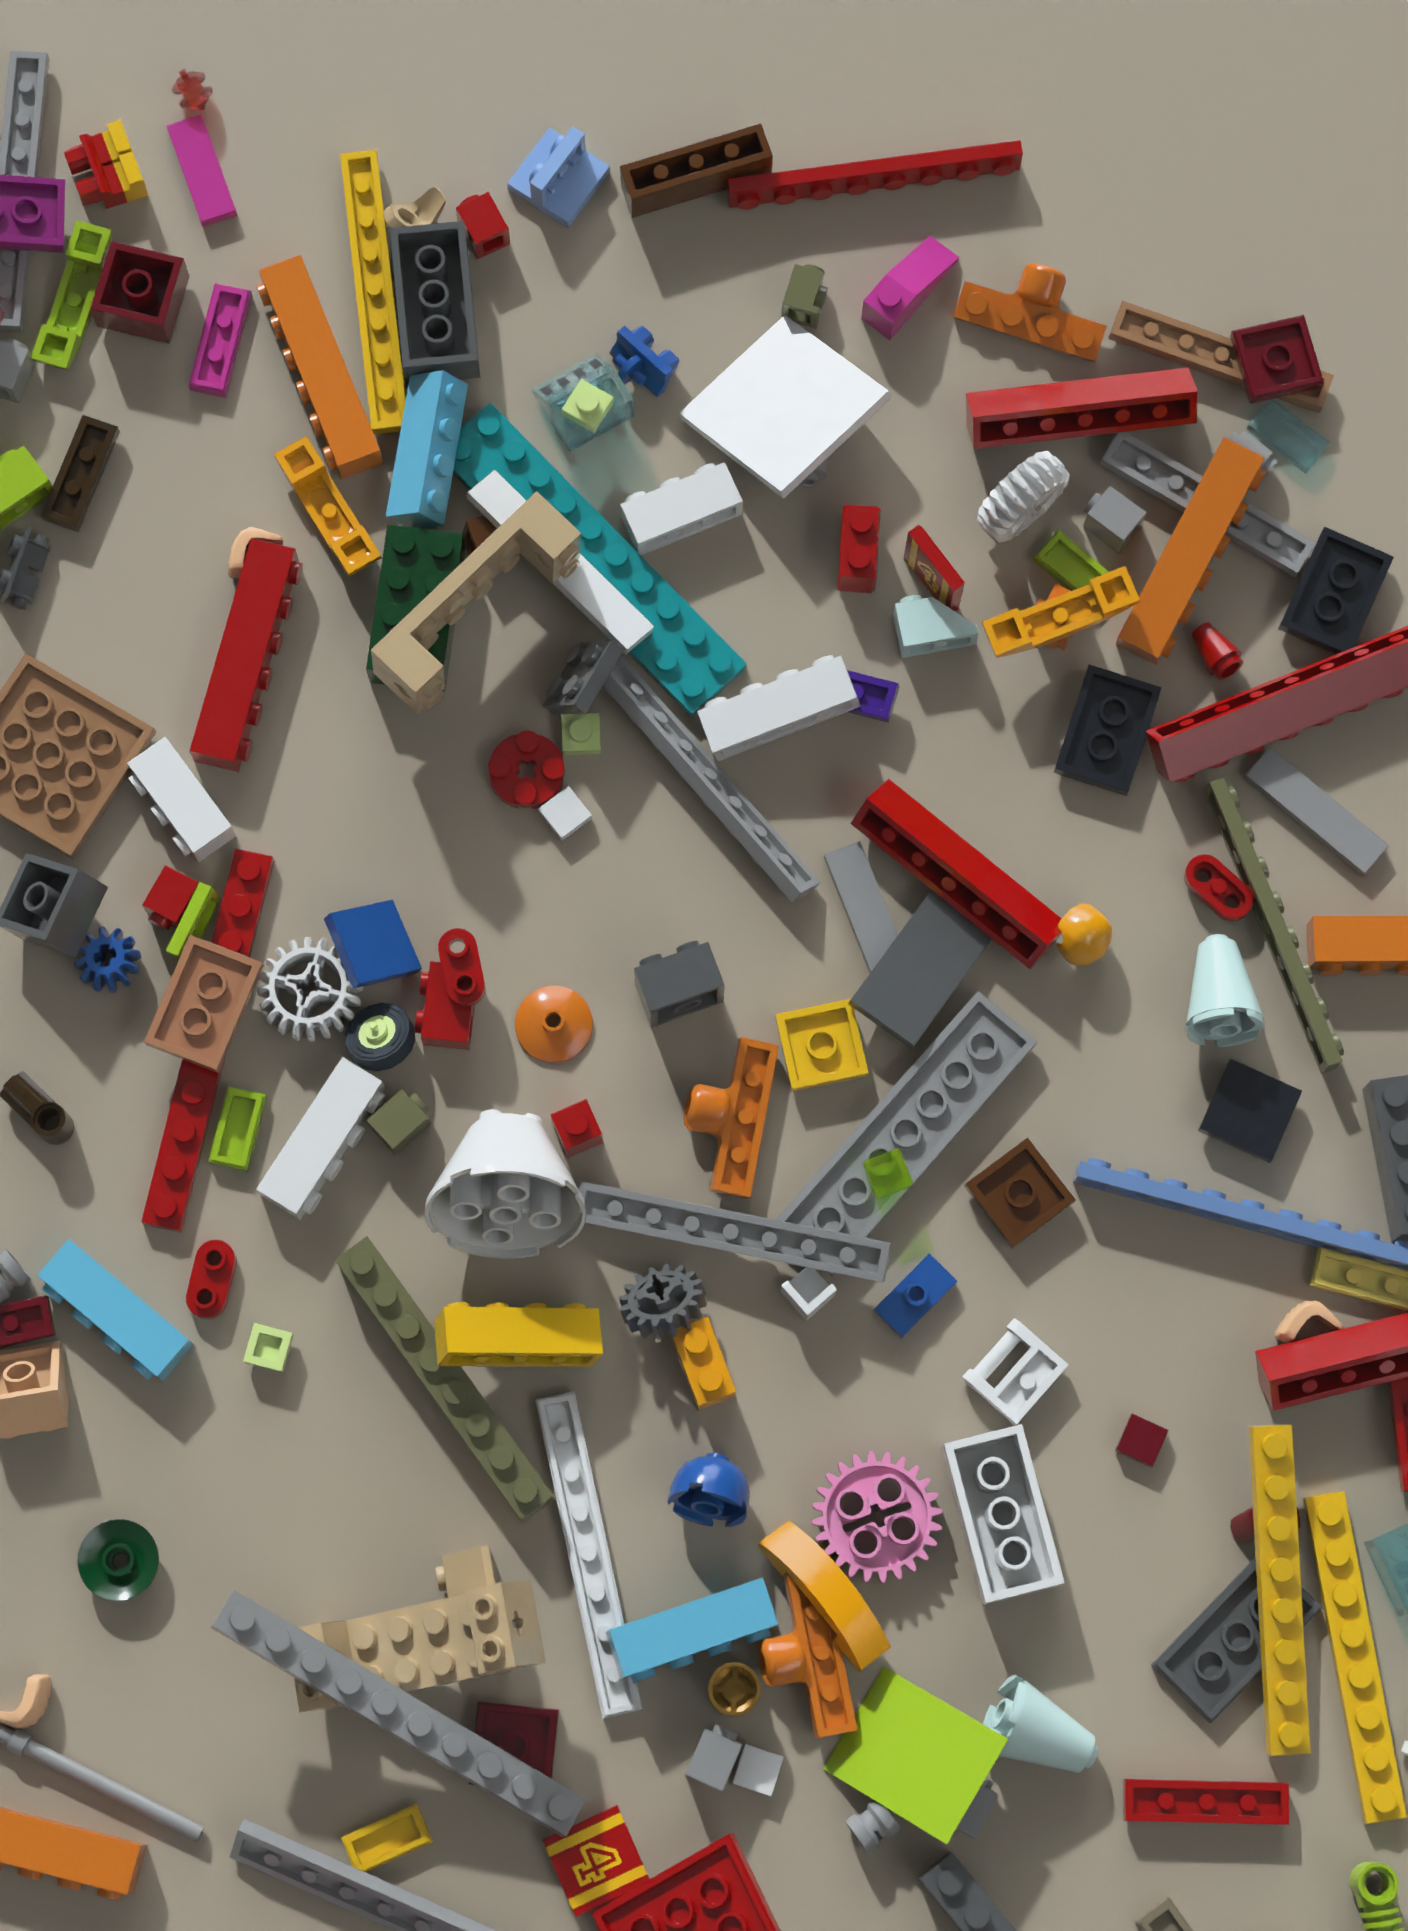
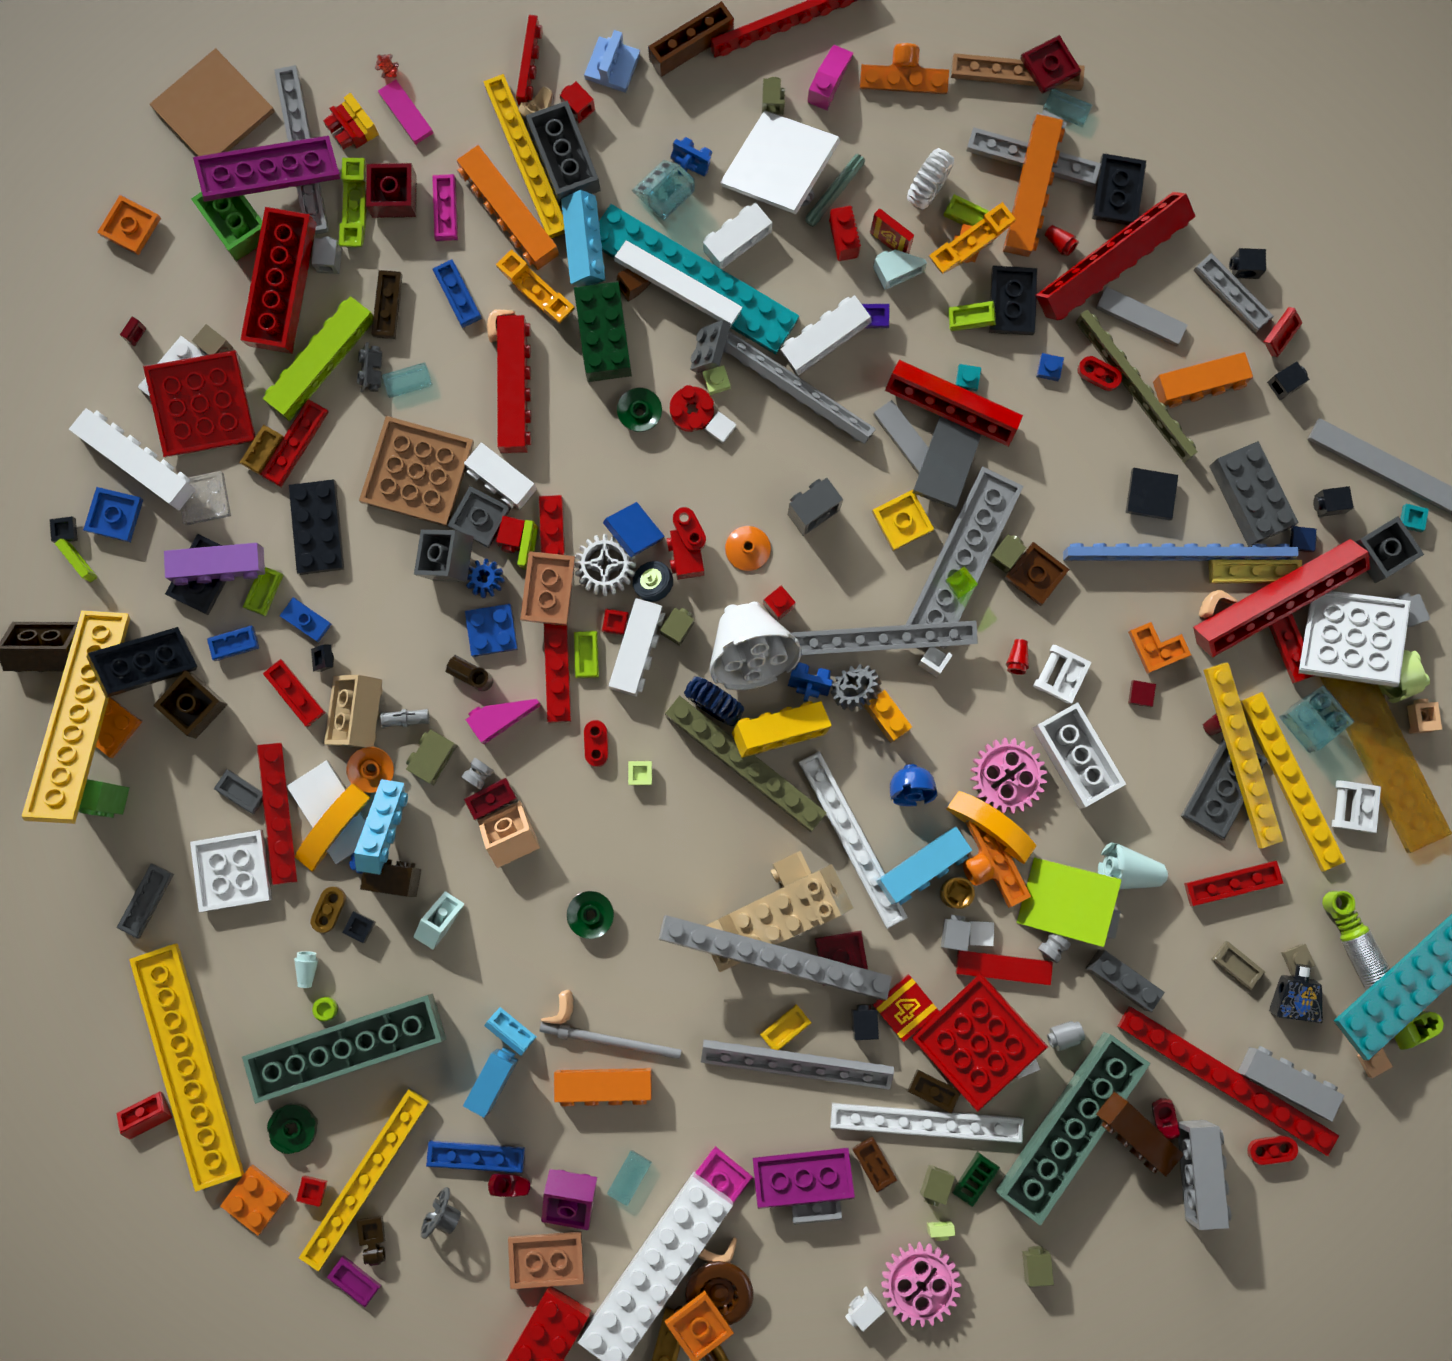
camera: 15 degrees left, 5 degrees up
(56, 1195) = (495, 719): none -> dark pink slope
(77, 603) = (407, 380): none -> clear light blue tile
(94, 1047) = (491, 630): none -> blue plate
(115, 1310) = (547, 775): medium azure brick -> none
(128, 856) = (479, 516): none -> dark grey plate
(199, 484) = (457, 293): none -> blue tile
(299, 1086) = (615, 622): none -> red tile
(421, 1260) = (714, 701): none -> dark blue gear
(429, 127) = (530, 53): none -> red plate
(434, 733) = (639, 399): none -> dark green dish
(519, 1865) = (865, 1022): none -> black brick
(534, 532) = (662, 269): tan plate -> none
(587, 405) = (669, 189): yellowish green plate -> none
(589, 1276) = (810, 684): none -> blue hips
(735, 1116) = (866, 572): orange plate -> none
(780, 1838) = (1004, 967): none -> red tile
(864, 473) = (835, 190): none -> sand green axle
(915, 1295) = (994, 646): blue plate -> none
(949, 1325) = (1018, 658): none -> red cone
(980, 1145) = (1007, 553): none -> olive brick
(998, 837) = (968, 377): none -> teal plate
(1031, 738) = (972, 316): none -> lime tile
(1081, 408) = (948, 120): red brick -> none
(1085, 935) = (1035, 419): light orange hair -> none
(1113, 518) = (982, 179): light grey brick -> none
(1139, 856) = (1050, 367): none -> blue plate
(1180, 1379) = (1156, 653): none -> orange plate
(1222, 996) = (1120, 433): light aqua cone -> none

